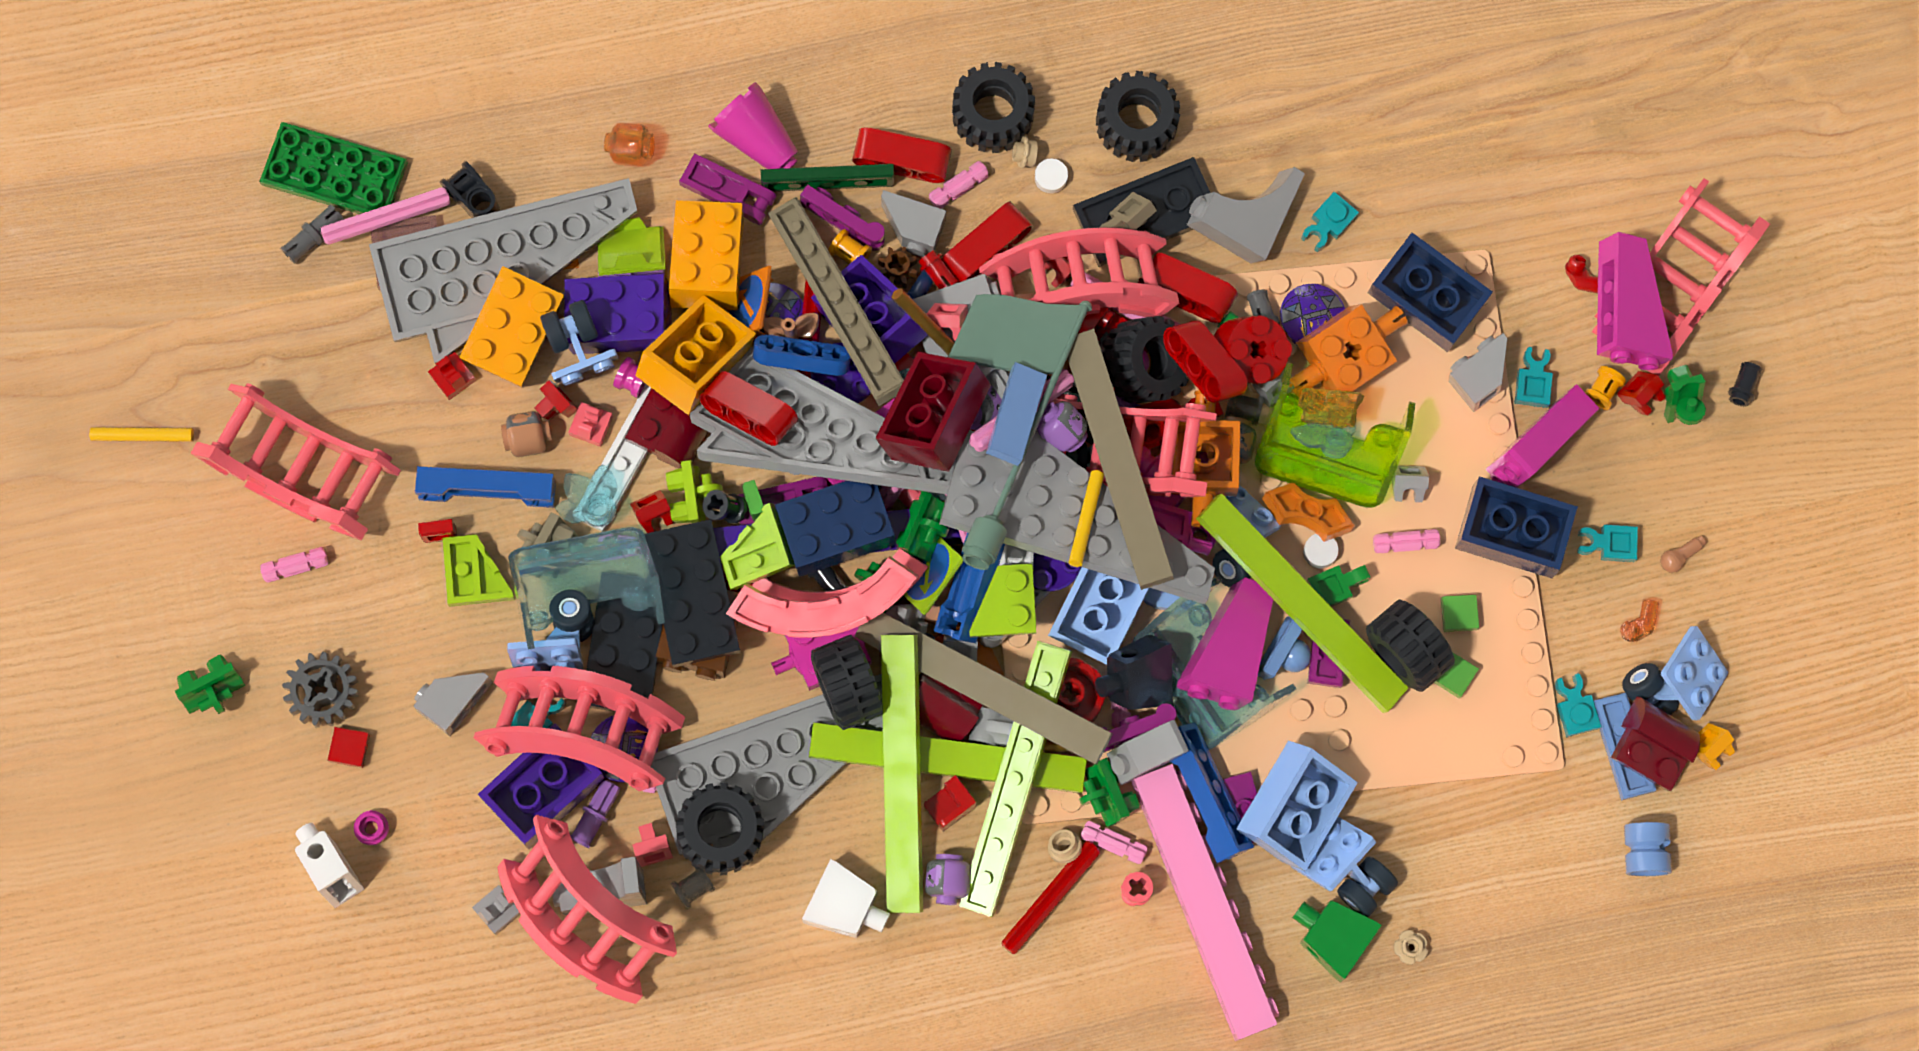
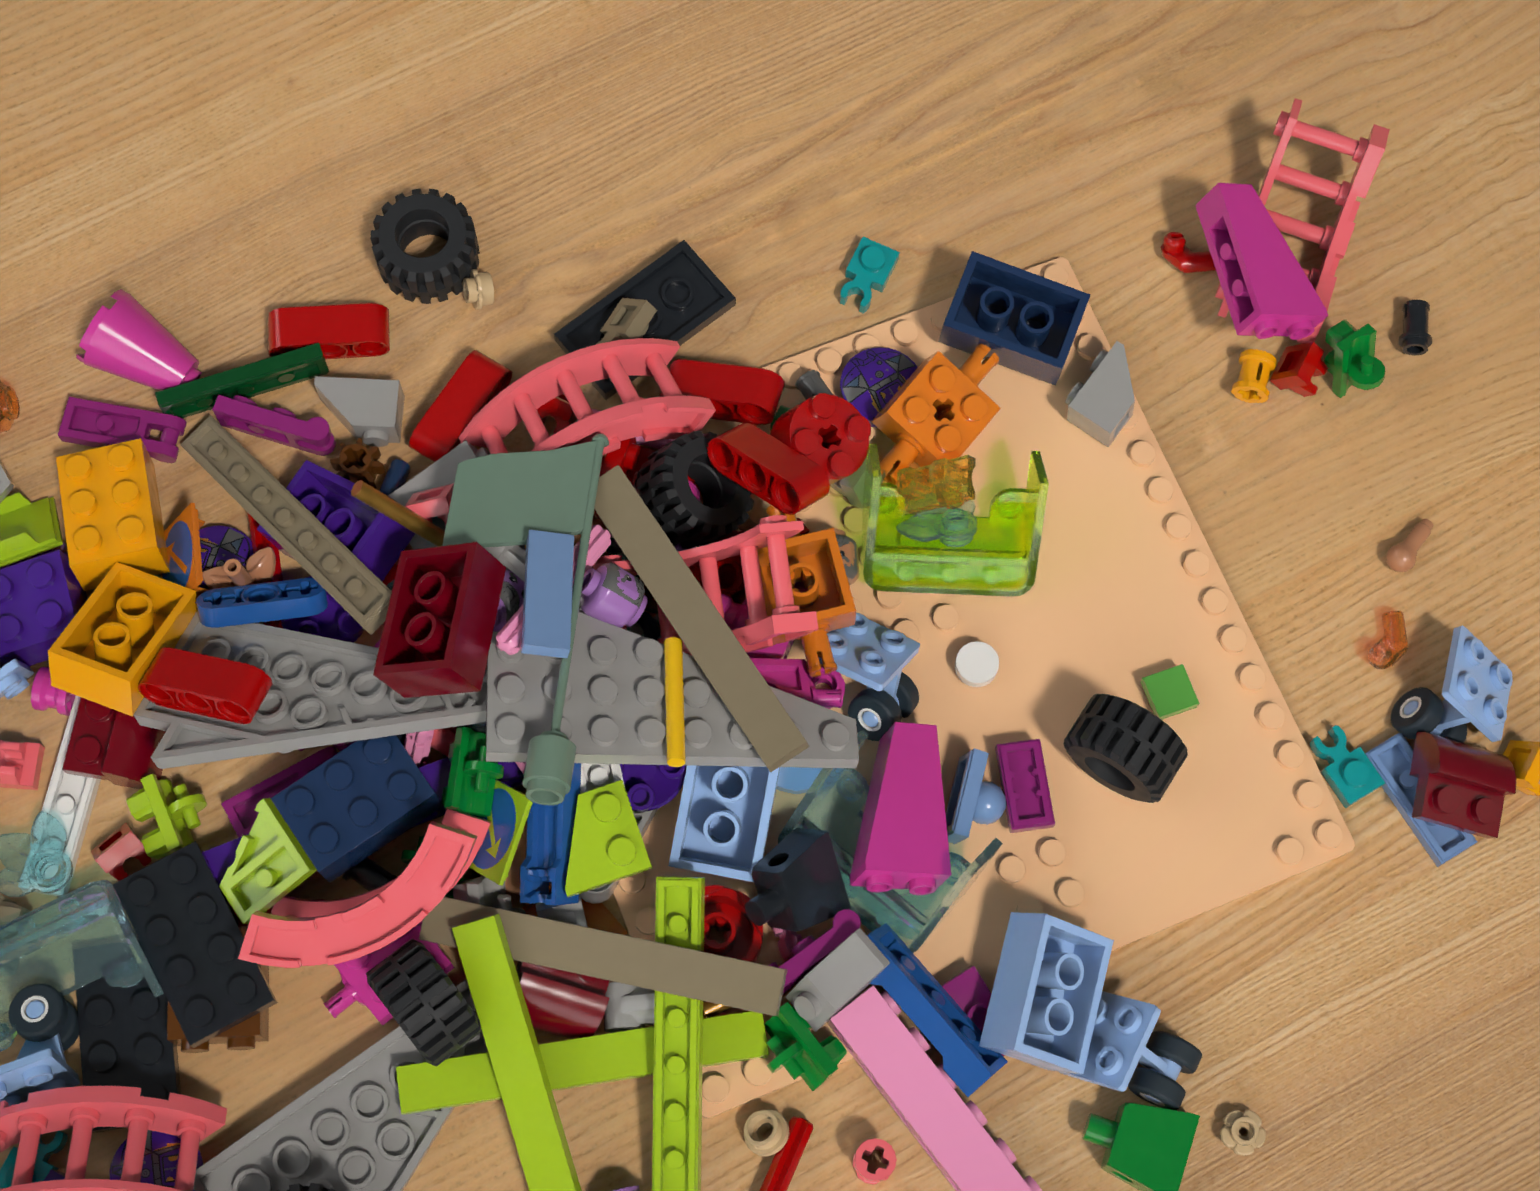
camera: 15 degrees left, 5 degrees down
(721, 501) = (205, 815): black bush -> none
(753, 499) = (243, 798): bright green tile -> none
(848, 248) = (289, 458): light orange bush -> none
(936, 269) = (406, 453): red pin -> none
(950, 804) = (603, 1120): red panel -> none
(958, 185) = (409, 348): bright pink axle -> none
(1051, 176) = (518, 309): white tile -> none
(1114, 842) = (827, 1107): bright pink axle -> none
(1140, 91) = (595, 182): black tyre -> none
(1245, 407) = (832, 515): clear smoke bush -> none
(1246, 225) = (770, 300): light grey arch -> none
(1294, 506) = (965, 621): orange tile -> none
(1302, 603) = (975, 733): lime tile -> none
(1335, 586) = (1007, 703): green plate -> none
(1406, 541) = (1077, 623): bright pink axle -> none
(1410, 478) = (1059, 545): light grey tile -> none
(1457, 677) = (1194, 773): bright green tile -> none
(1516, 527) = (1206, 567): dark blue brick -> none
(1533, 384) = (1167, 394): teal plate -> none
(1542, 438) = (1202, 456): dark pink slope -> none
(1614, 542) = (1325, 553): teal plate -> none
(1647, 849) = (1494, 918): medium blue wheel -> none

